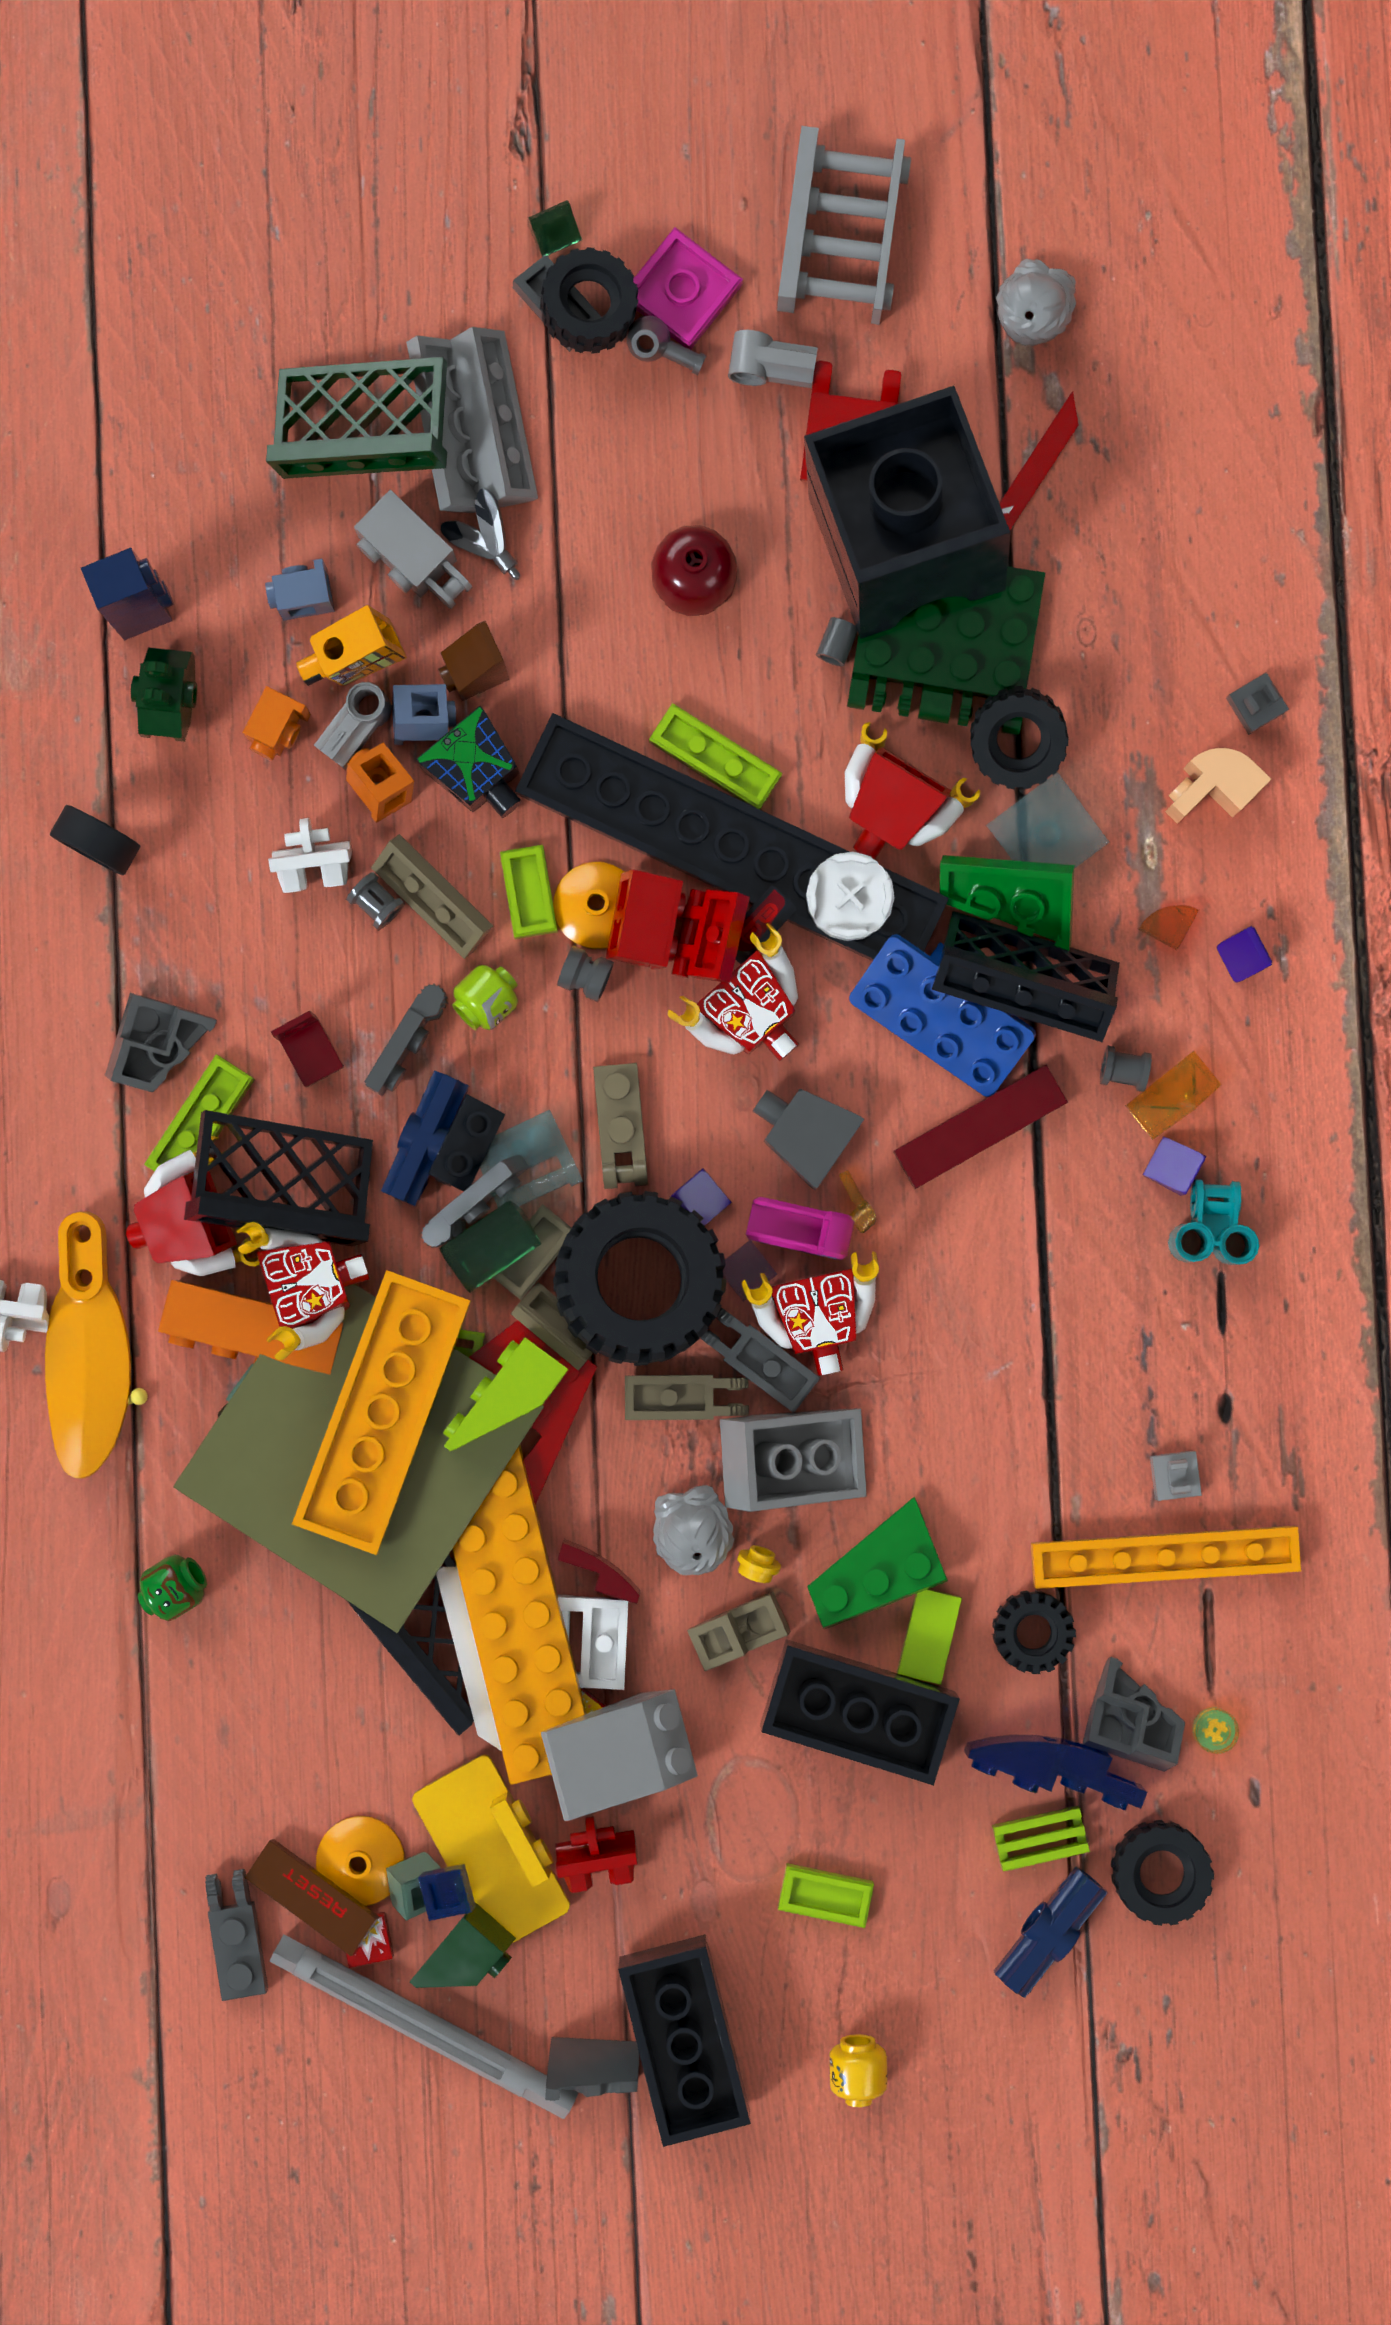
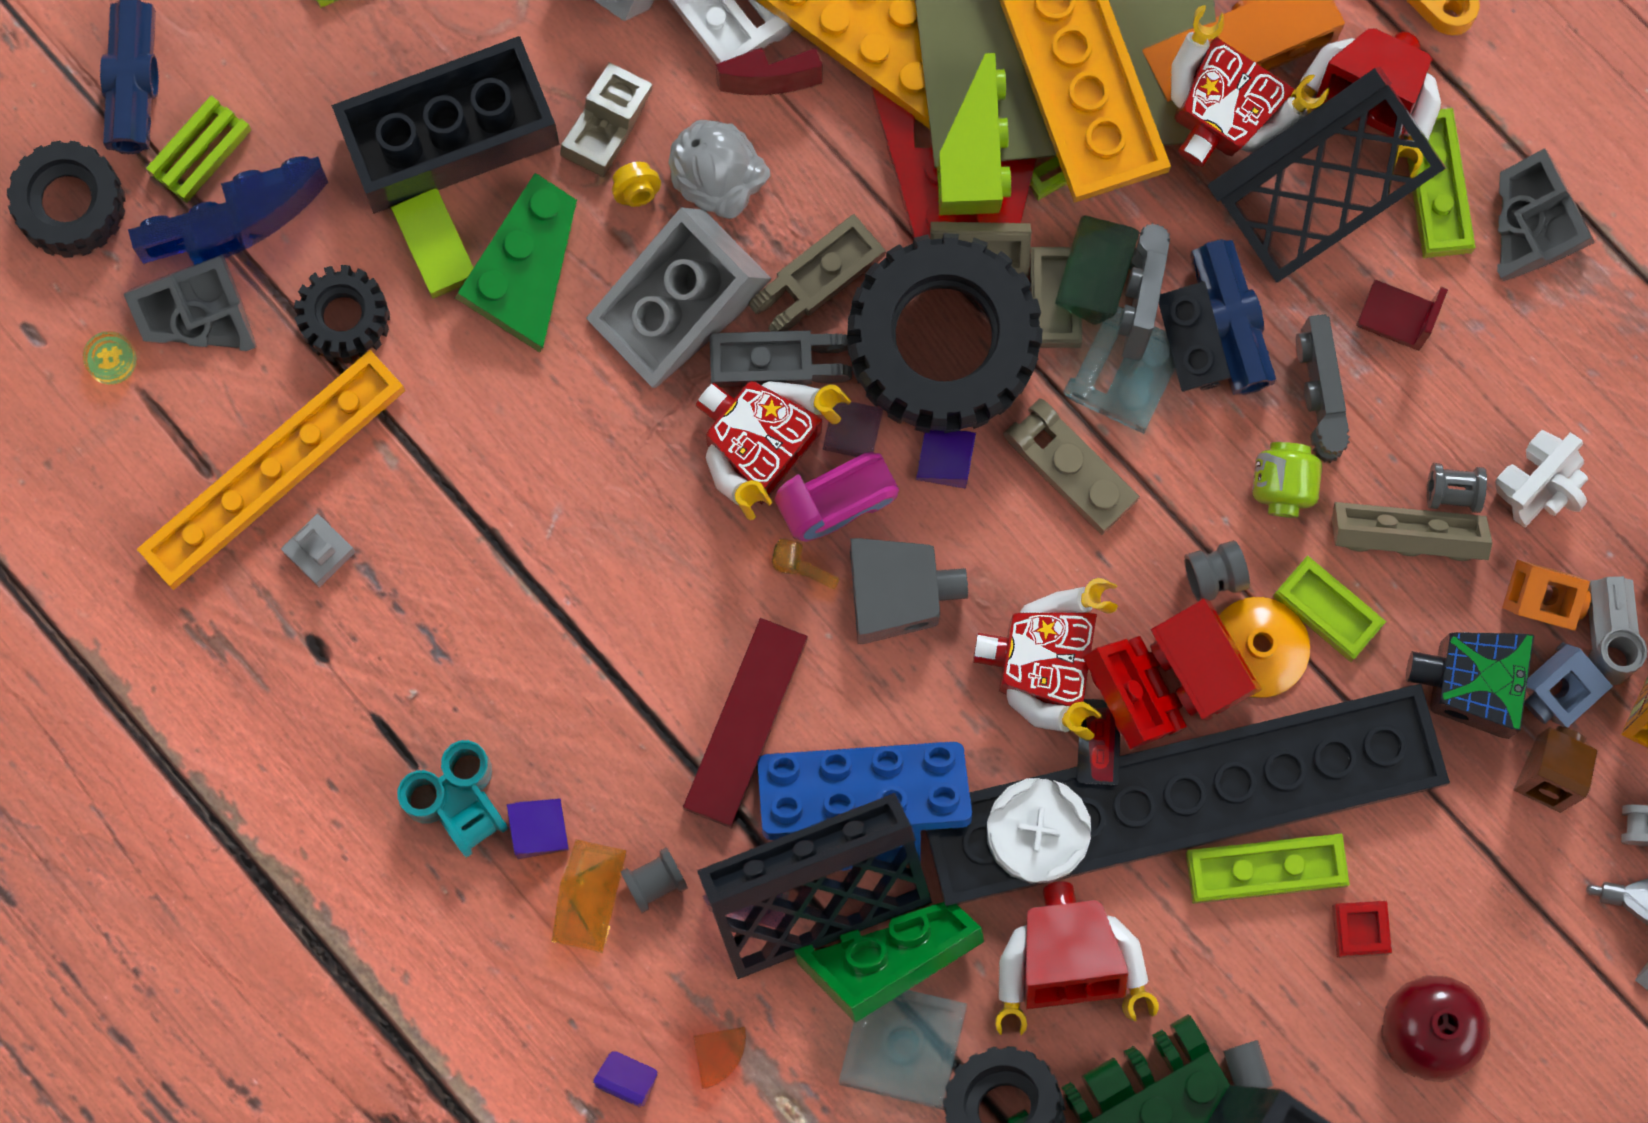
camera: 140 degrees right, 10 degrees down
(687, 670) = (1362, 929): none -> red tile

